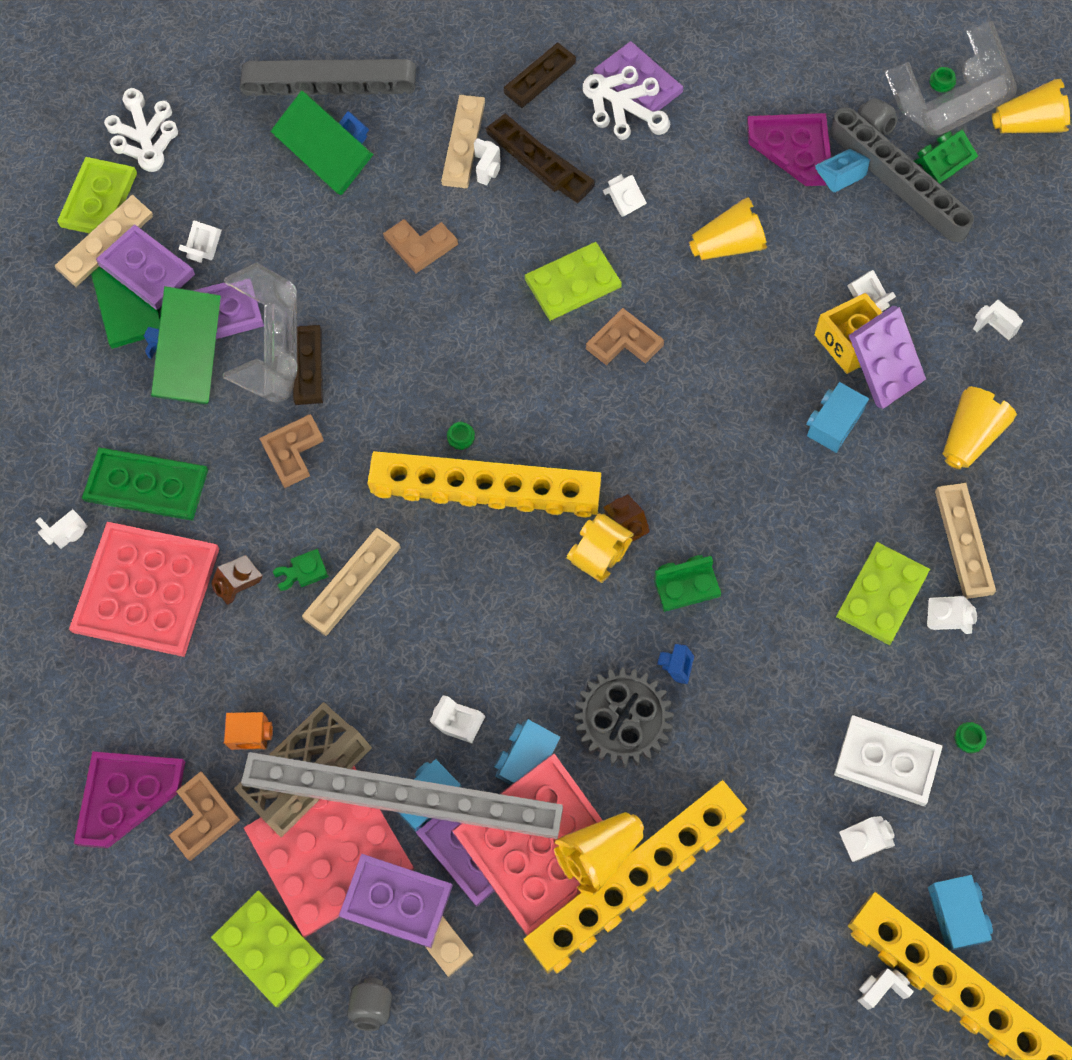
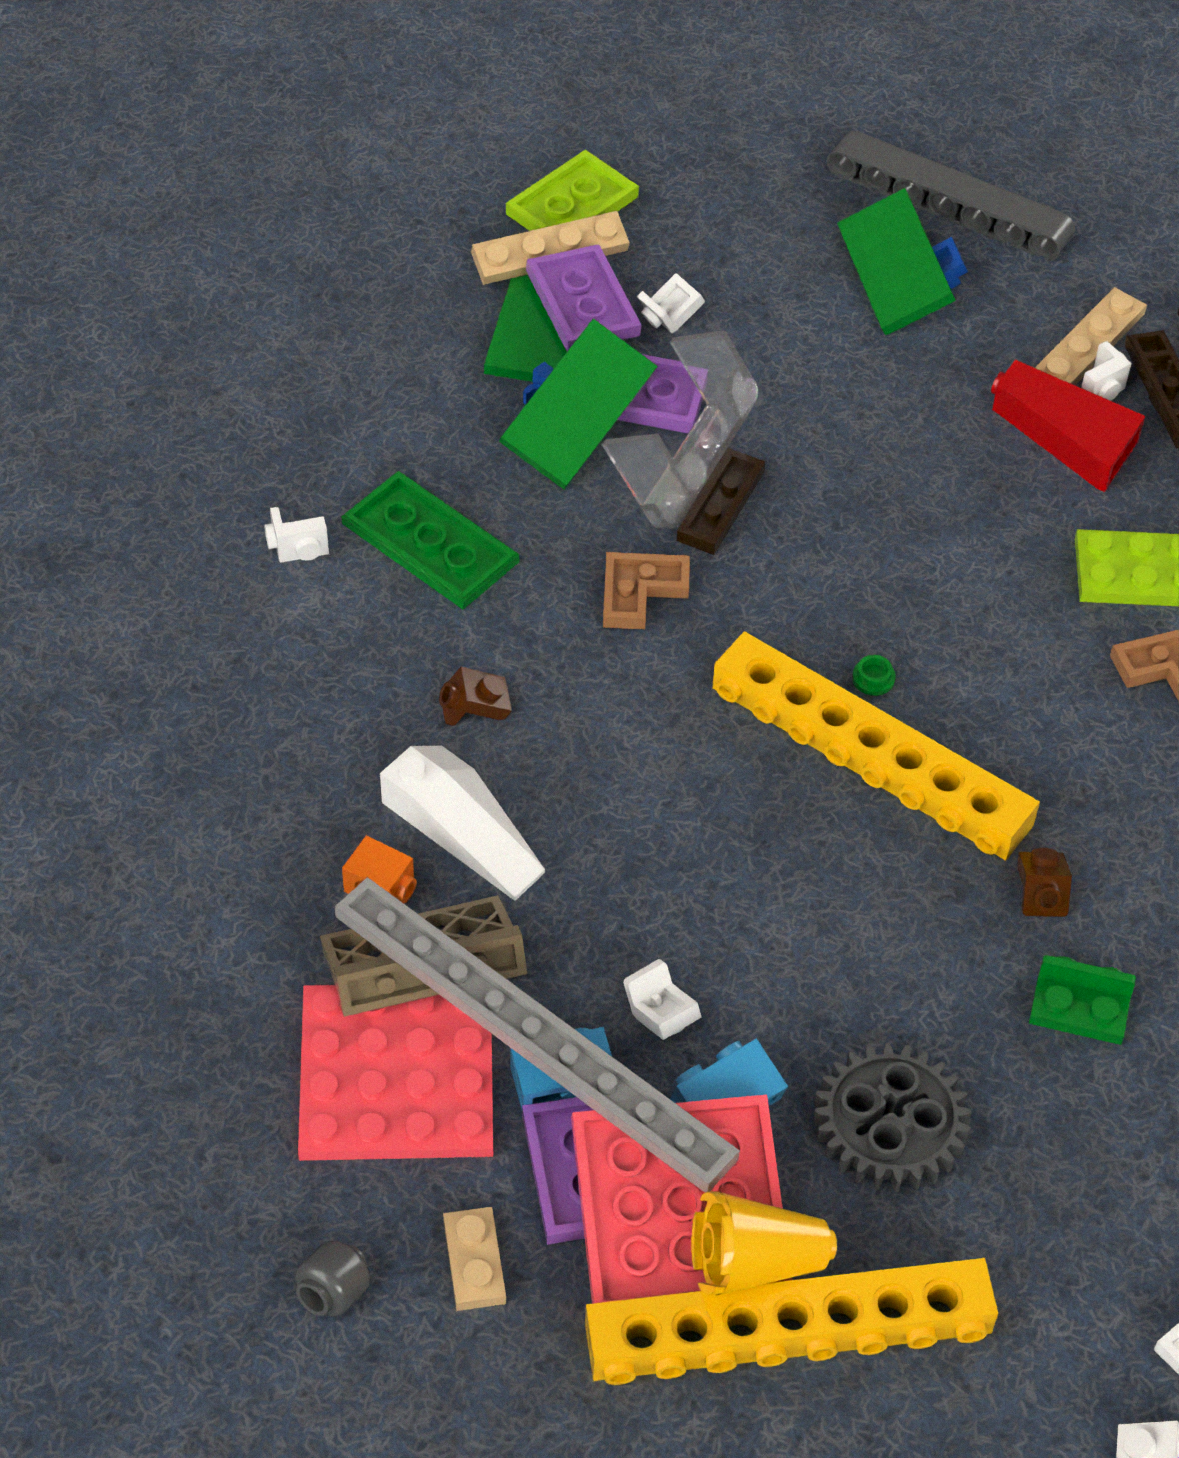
camera: 25 degrees right, 15 degrees down
(123, 793) = (180, 869): magenta plate -> none
(143, 132) = (667, 186): white plant -> none
(145, 589) = (355, 654): coral plate -> none
(210, 818) = (267, 954): medium nougat plate -> none
(264, 658) = (461, 815): none -> white wedge
(267, 948) = (244, 1145): lime plate -> none
(306, 569) = (571, 732): green plate -> none
(351, 581) = (622, 773): tan plate -> none
(396, 900) = (445, 1167): medium lavender plate -> none
(420, 250) = (953, 442): medium nougat plate -> none
(481, 203) = (1068, 422): none -> red slope
(601, 547) = (984, 889): yellow brick -> none
(677, 664) = (1010, 1090): blue tile -> none

